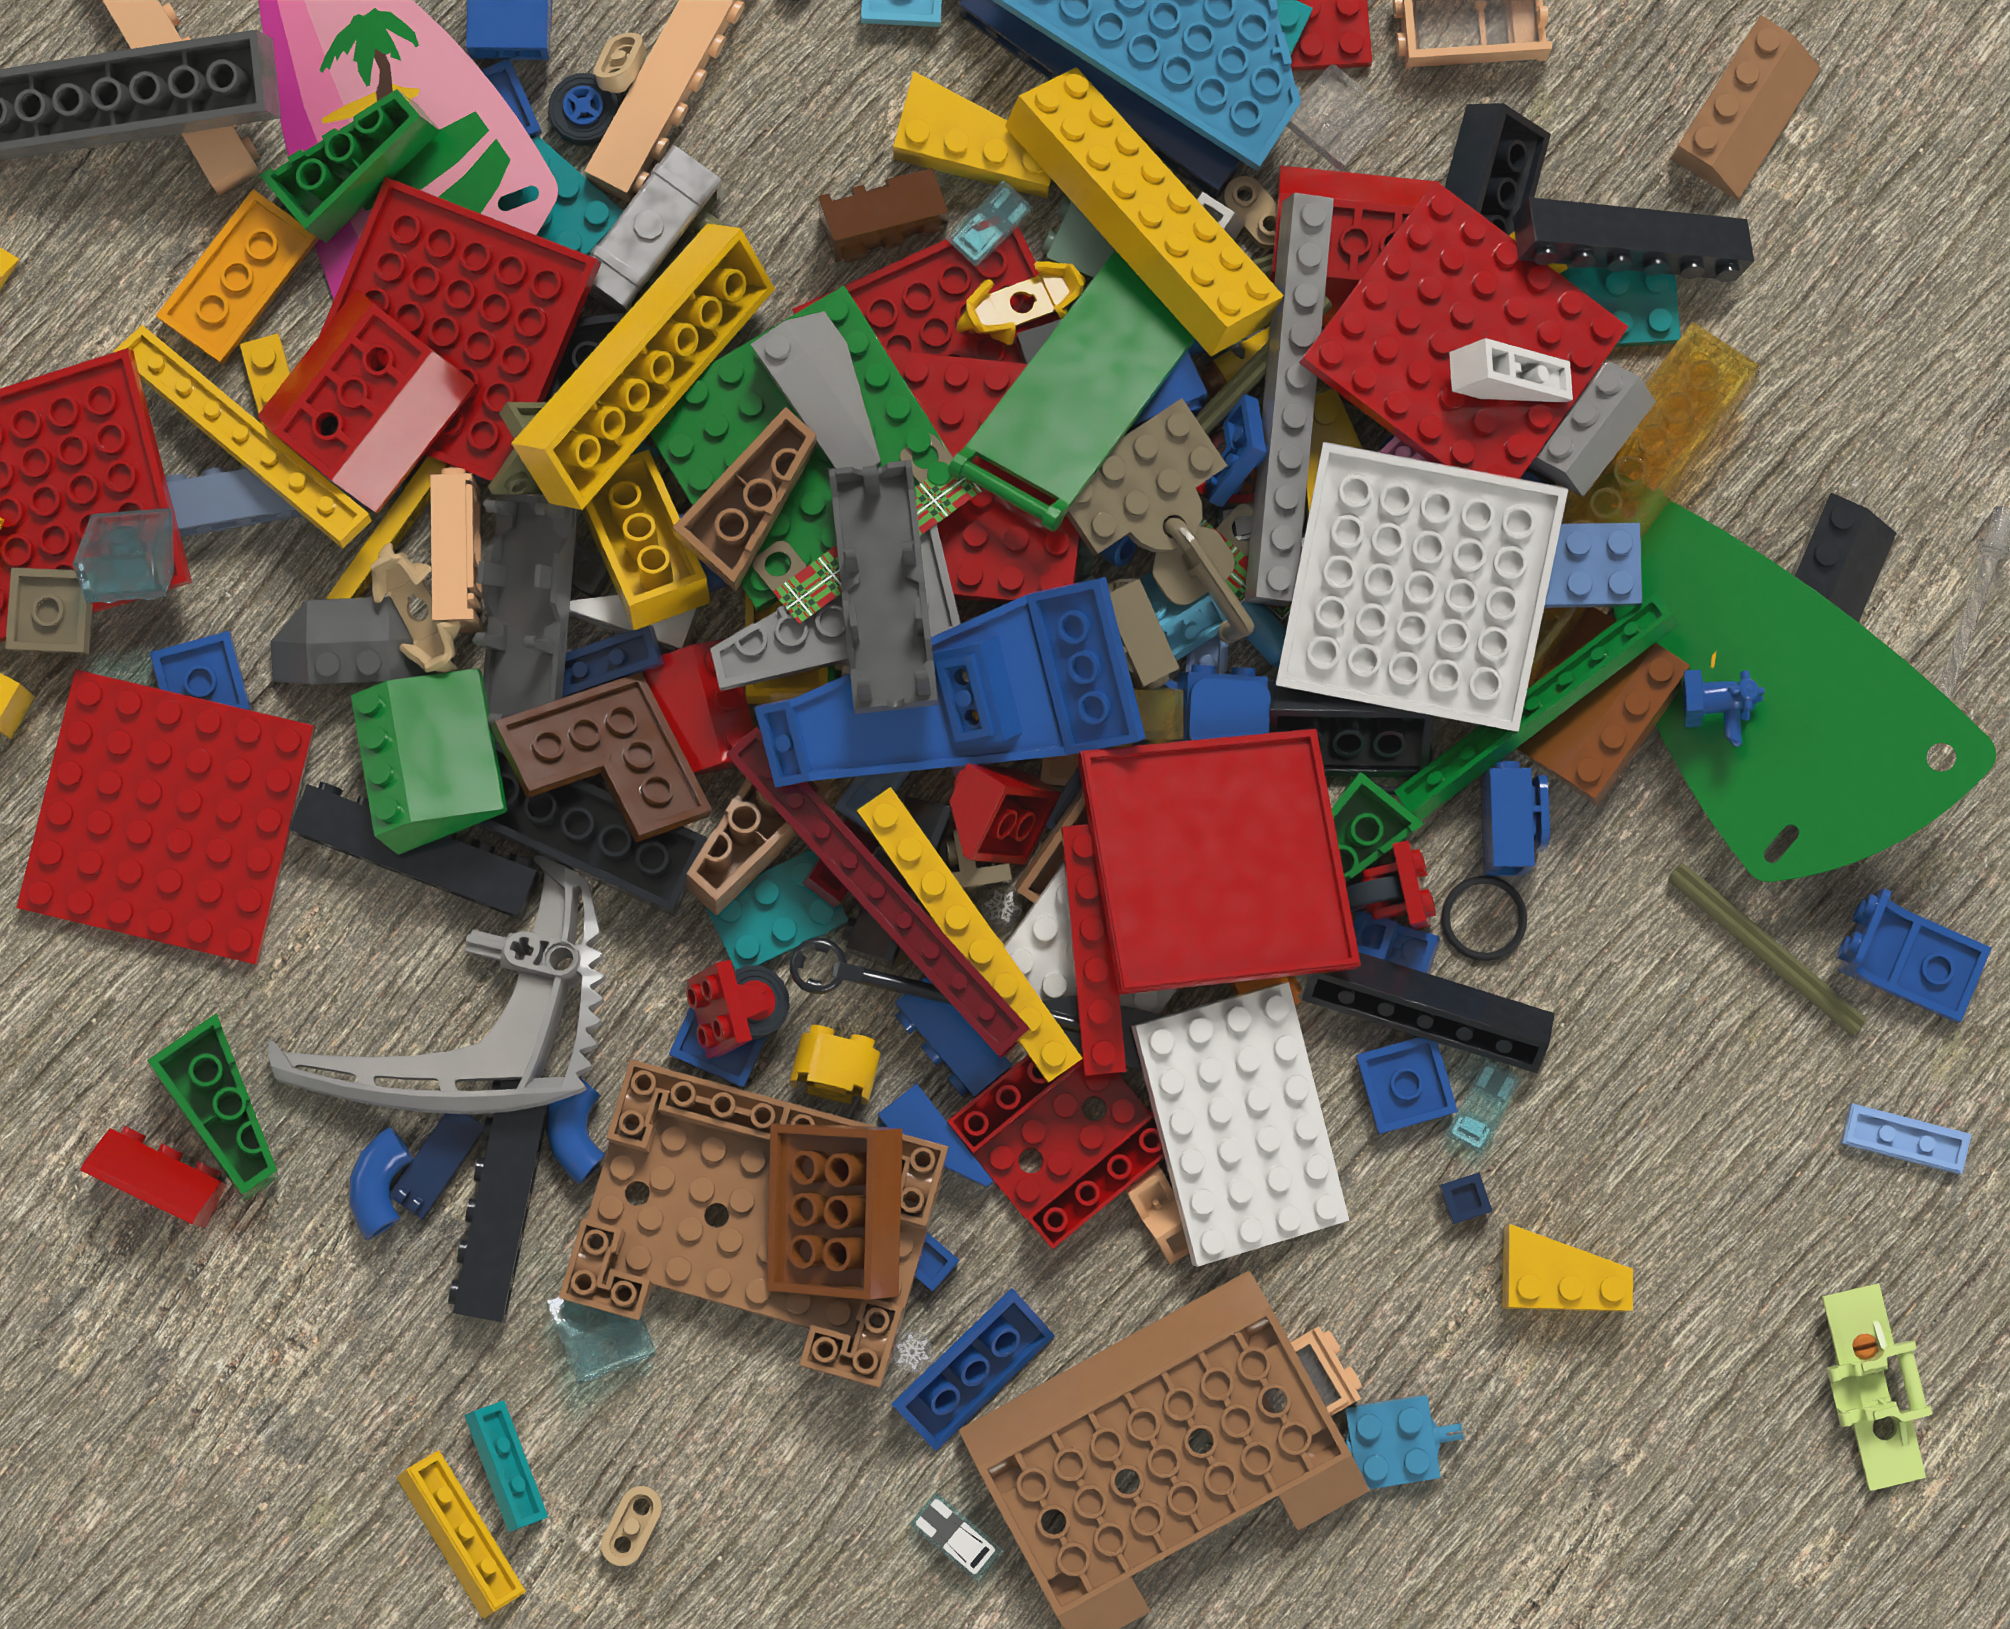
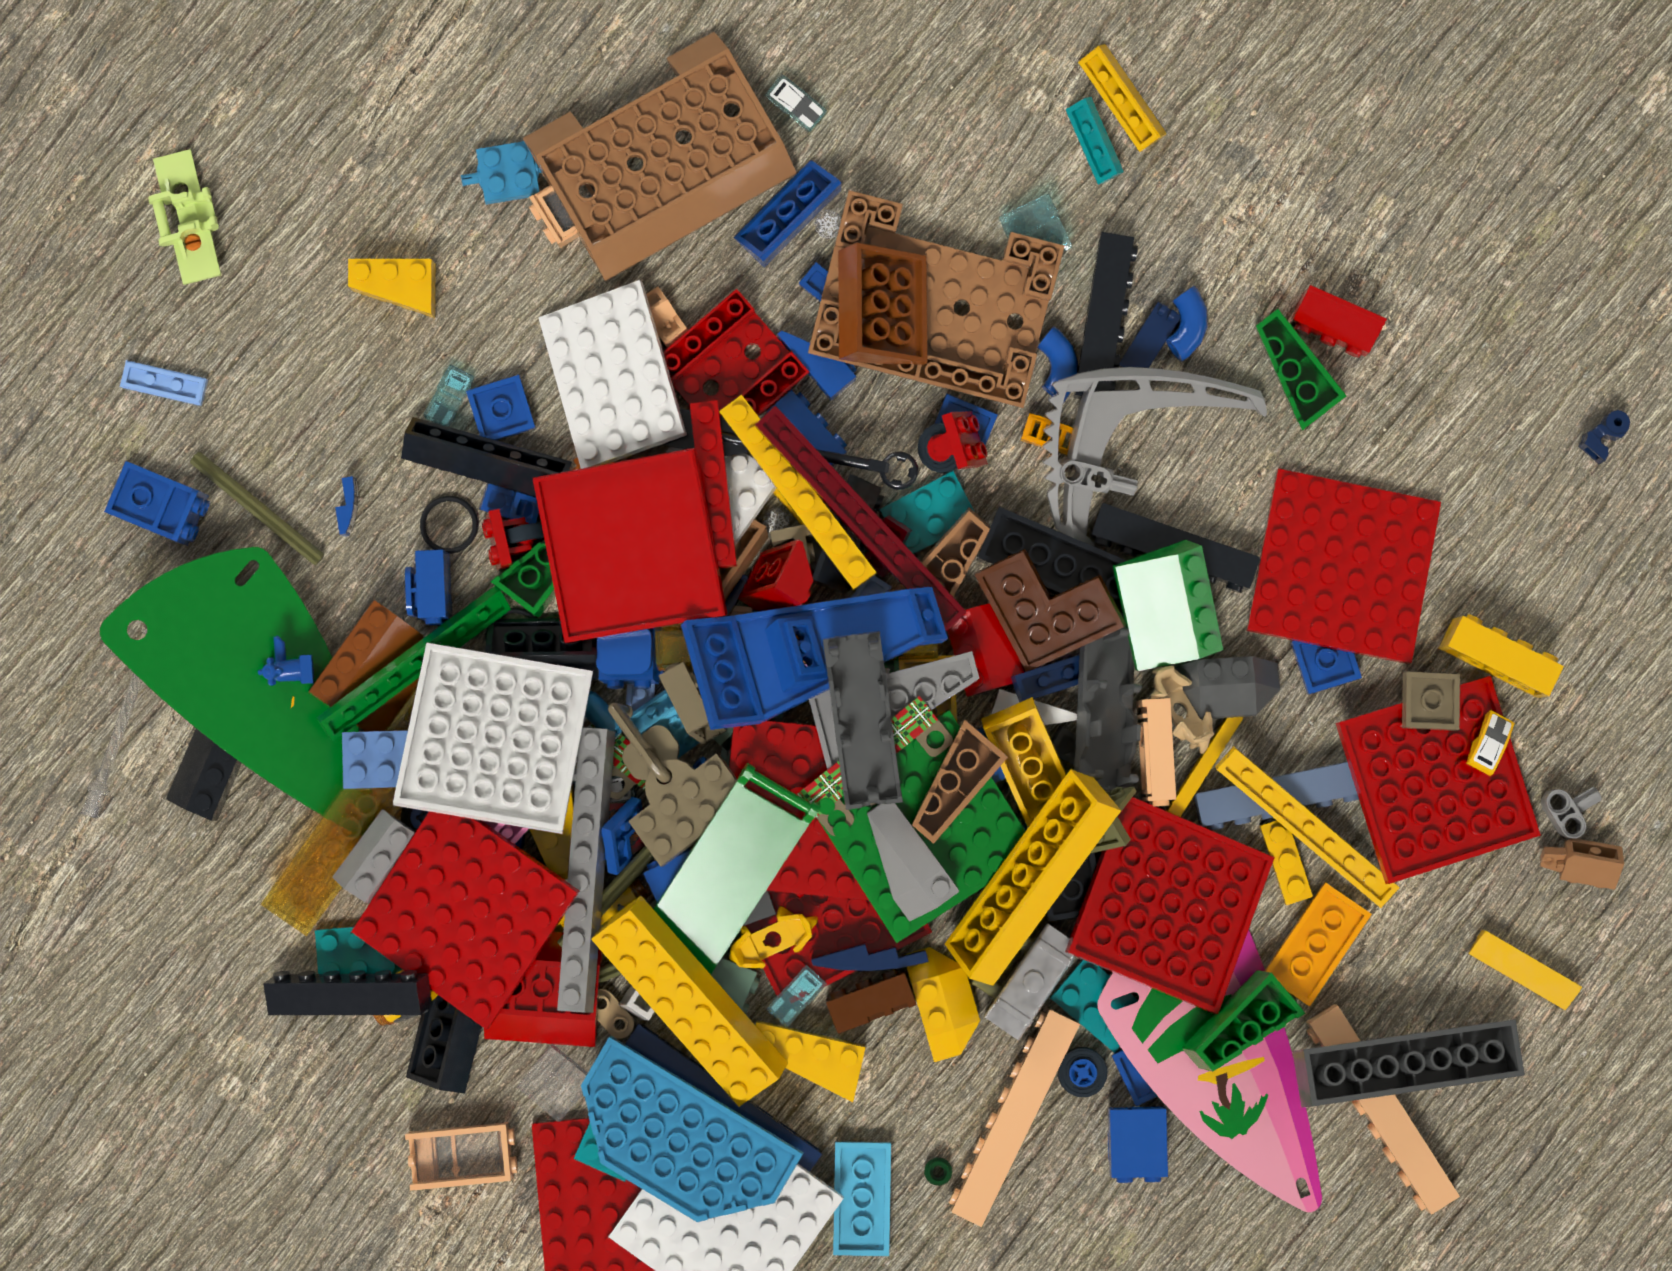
camera: 170 degrees left, 5 degrees up
(126, 556) = (1381, 736): clear light blue slope -> none
(382, 415) = (1211, 837): red slope -> none
(620, 62) = (1058, 1105): tan plate -> none
(623, 1033) = (1031, 420): none -> light orange slope
(631, 1525) = (1009, 105): tan plate -> none
(781, 214) = (944, 1004): none -> yellow wedge
(835, 1065) = (885, 407): yellow brick -> none
(900, 269) = (858, 959): none -> dark blue slope
(1465, 1198) = (460, 334): dark blue plate -> none
(1509, 373) = (433, 886): white slope -> none
(1634, 934) = (347, 514): none -> blue slope
(1747, 108) = (267, 1098): medium nougat slope -> none

